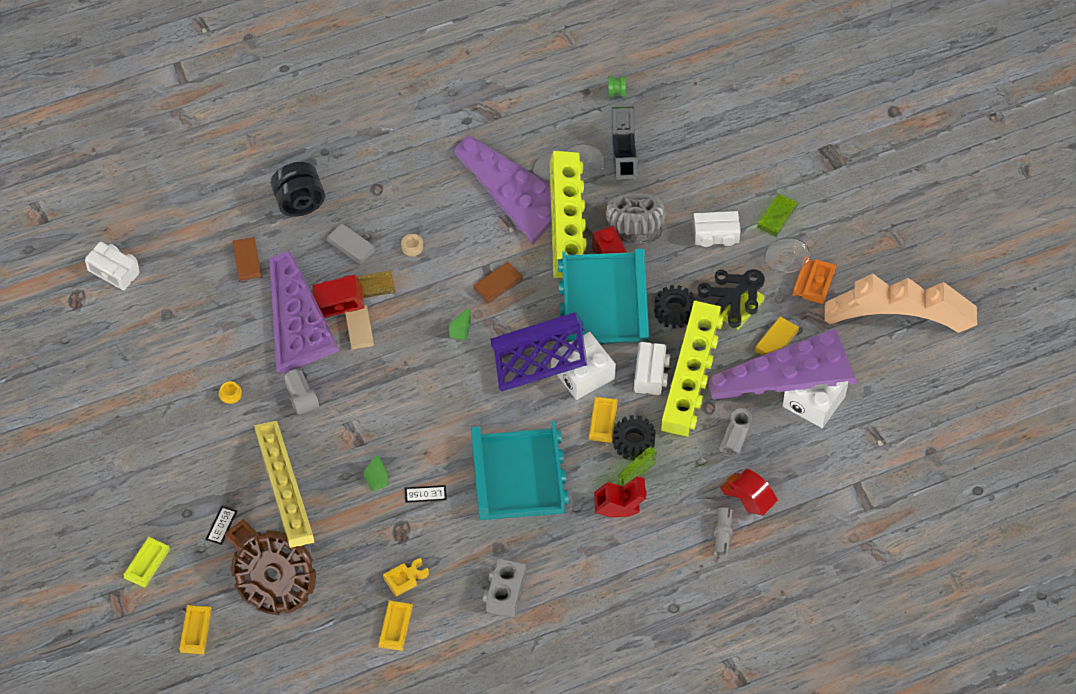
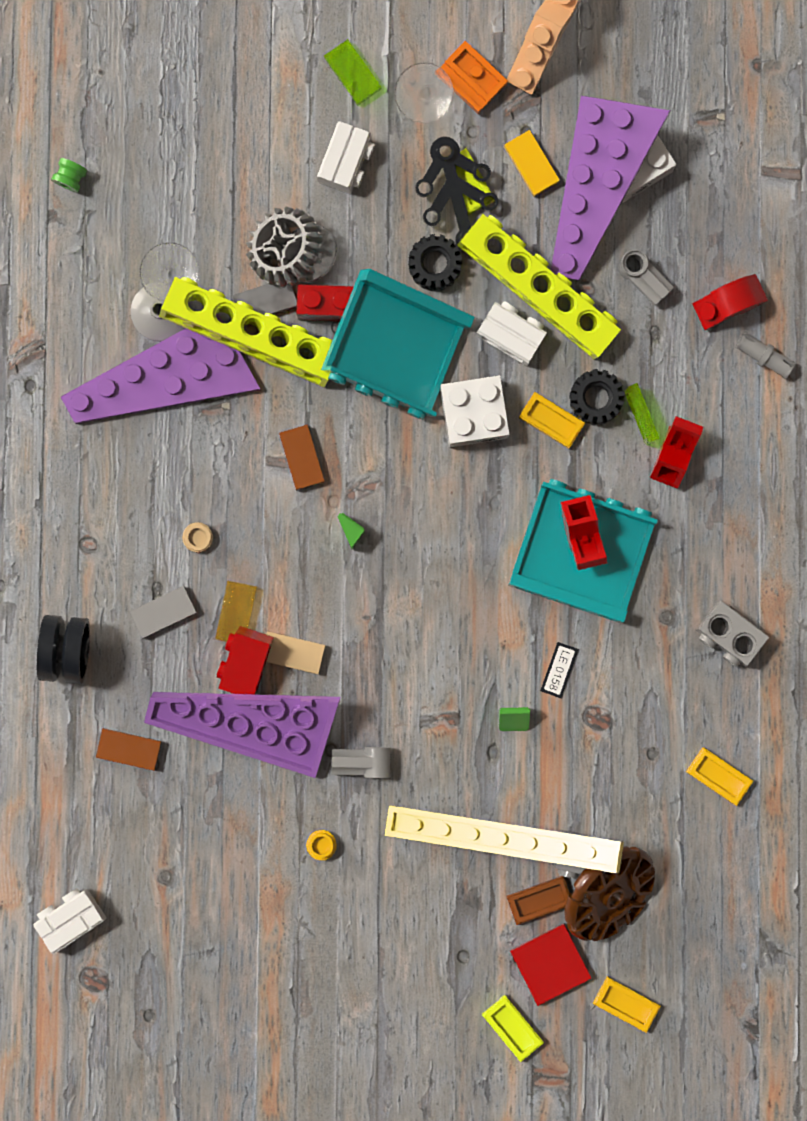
camera: 65 degrees left, 30 degrees up
(203, 568) = (550, 964): none -> red tile
(221, 525) = (498, 923): sticker -> none
(403, 578) = (666, 745): yellow plate -> none
(533, 456) = (583, 532): none -> red brick
(537, 336) = (423, 443): dark purple fence -> none
(623, 143) = (174, 213): black arch -> none

